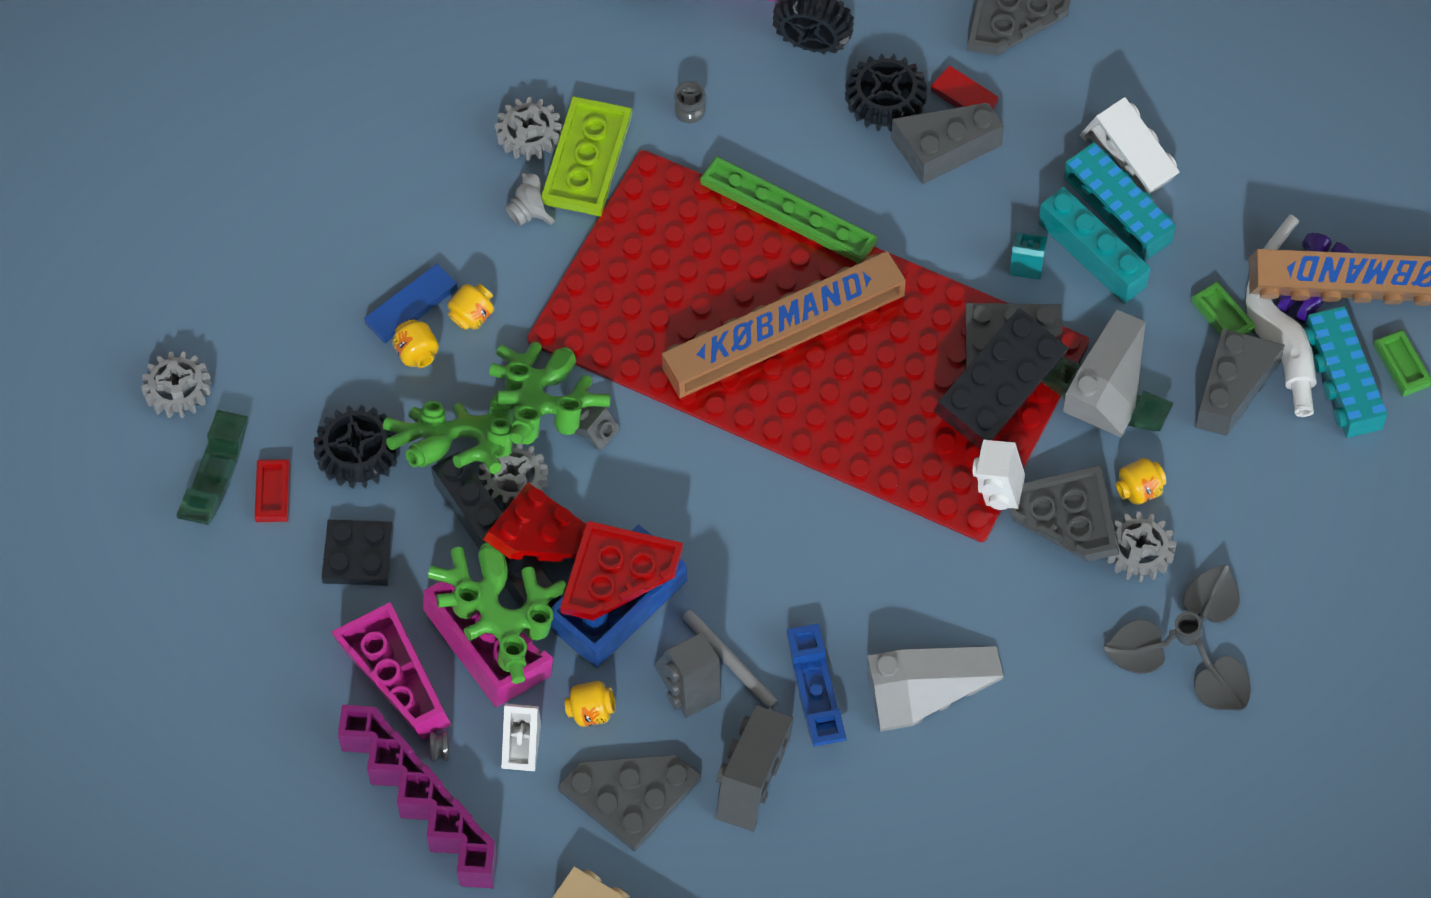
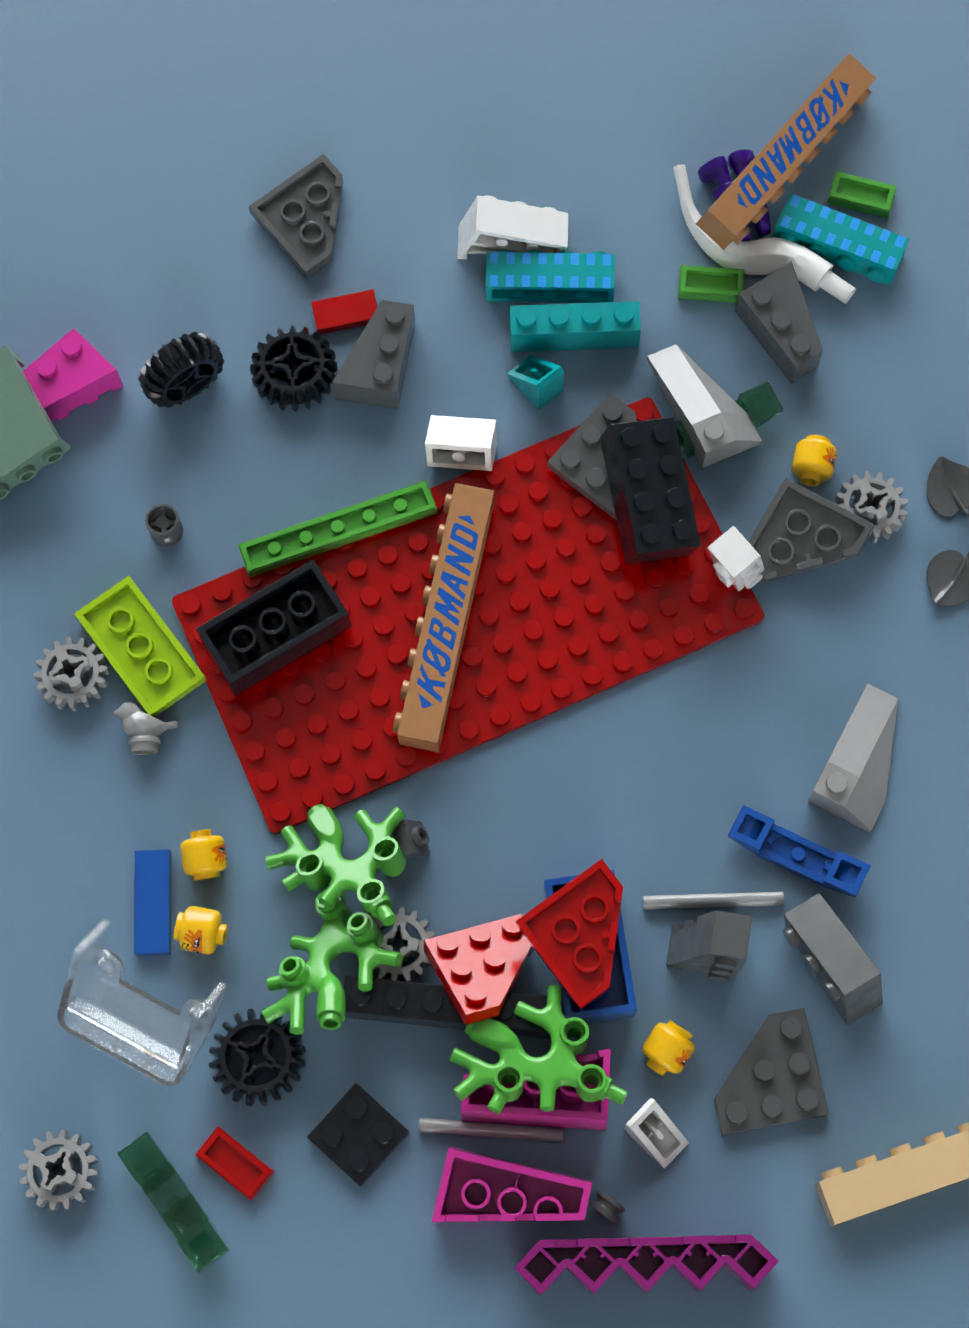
camera: 50 degrees left, 10 degrees up
(314, 345) = (129, 1021): none -> clear windscreen
(433, 634) = (494, 1130): none -> light grey bar
(672, 220) = (274, 627): none -> black brick
(928, 238) = (464, 439): none -> white brick

